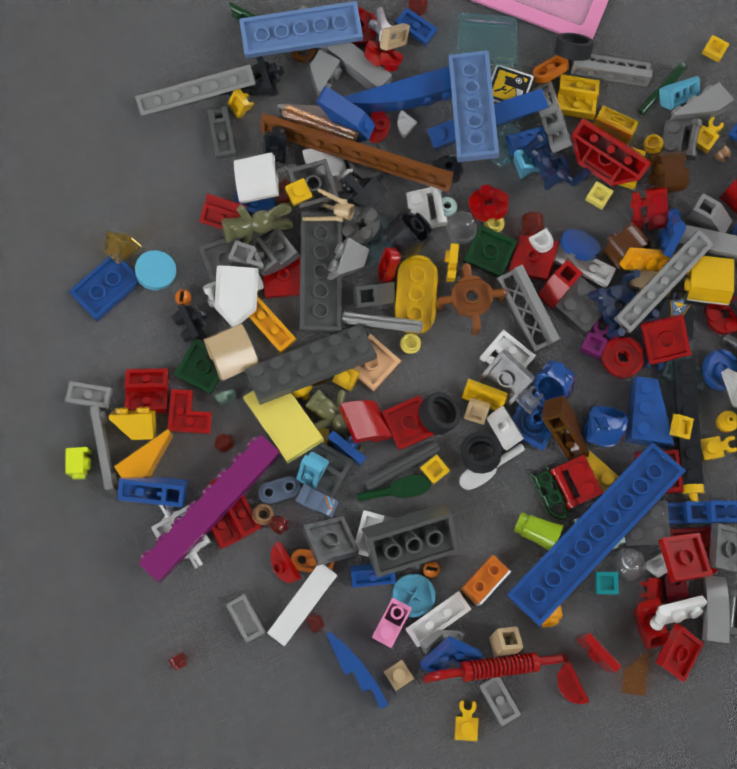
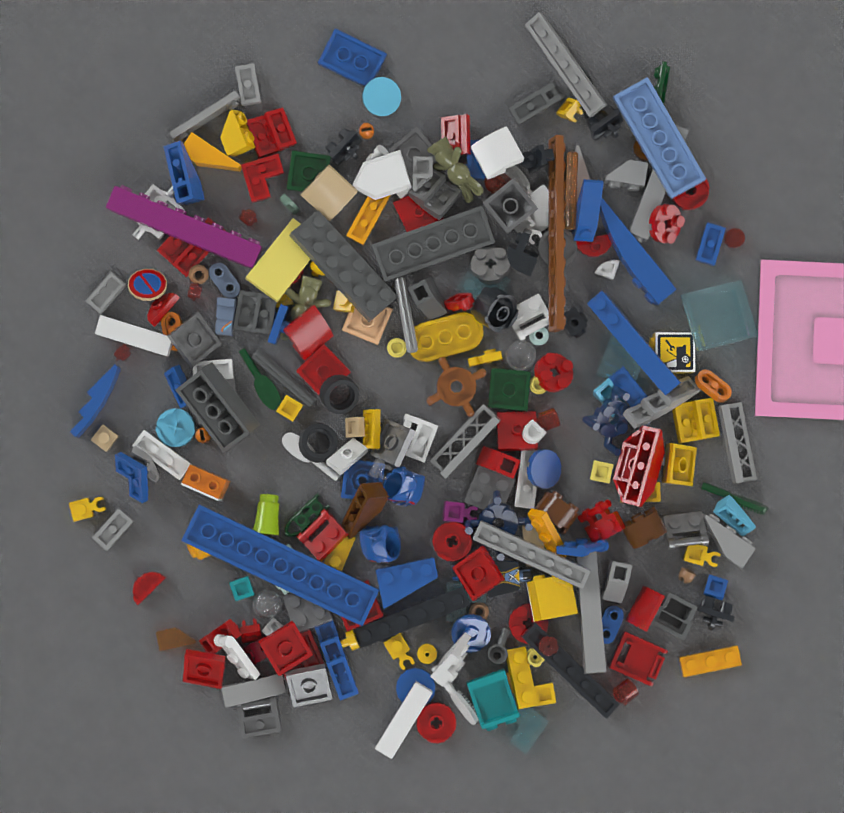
camera: 70 degrees right, 10 degrees up
(78, 462) = (185, 99): neon yellow brick -> none
(120, 246) = (392, 57): clear yellow slope -> none
(178, 661) = (51, 250): clear red plate -> none
(254, 570) = (147, 284): none -> piece
(298, 192) = (495, 195): yellow plate -> none
(312, 469) = (249, 301): medium azure slope -> none
(342, 209) = (495, 240): tan plant -> none
(348, 259) = (450, 263): light grey slope -> none
(389, 36) = (688, 222): tan piece -> none
(391, 622) = (142, 416): bright pink slope -> none
(473, 106) = (634, 324): medium blue plate -> none
(496, 667) = (138, 518): red piece -> none
(506, 641) = (161, 518): tan brick -> none
(574, 46) = (750, 396): black tyre -> none
(598, 653) = (178, 598): red plate -> none
(653, 144) = (672, 506): yellow plate -> none
(681, 426) = (400, 610): yellow plate -> none
(702, 351) = (479, 605): none -> medium nougat plate
(715, 48) = (794, 536): yellow plate -> none

